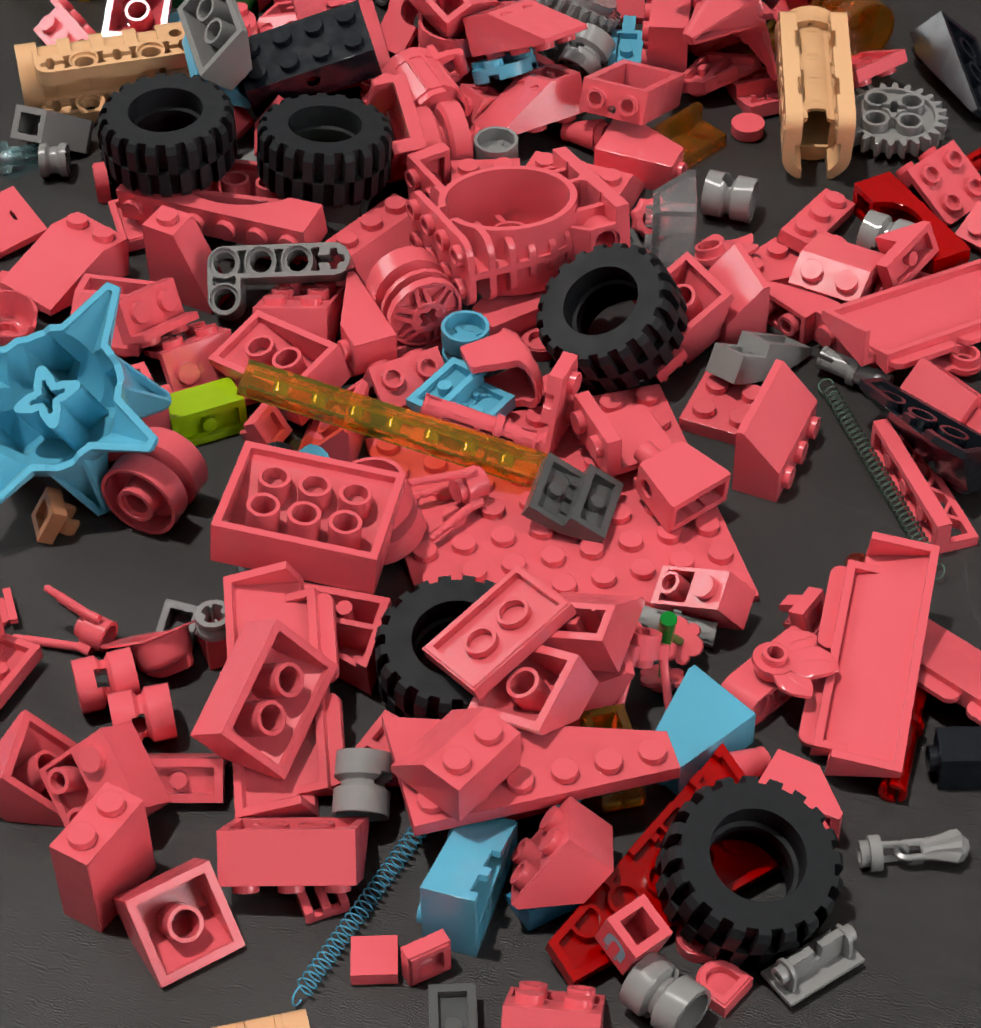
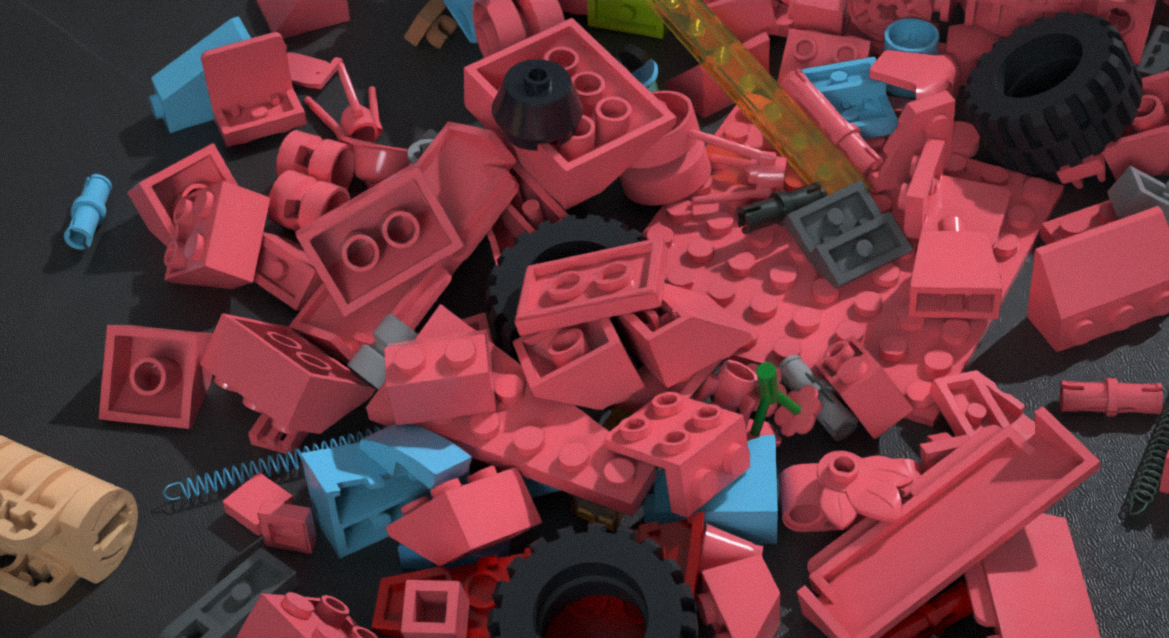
camera: 45 degrees right, 0 degrees up
(102, 855) = (143, 279): coral brick -> none
(266, 426) = (663, 44): coral tile -> none
(314, 519) = (537, 104): none -> black cone
(503, 827) = (417, 450): none -> medium azure slope
(507, 506) = (776, 207): none -> pearl dark grey pin
(666, 700) = (693, 442): none -> coral bracket
(790, 568) = (973, 402): none -> coral wing
(847, 511) = (1111, 397): none -> coral pin

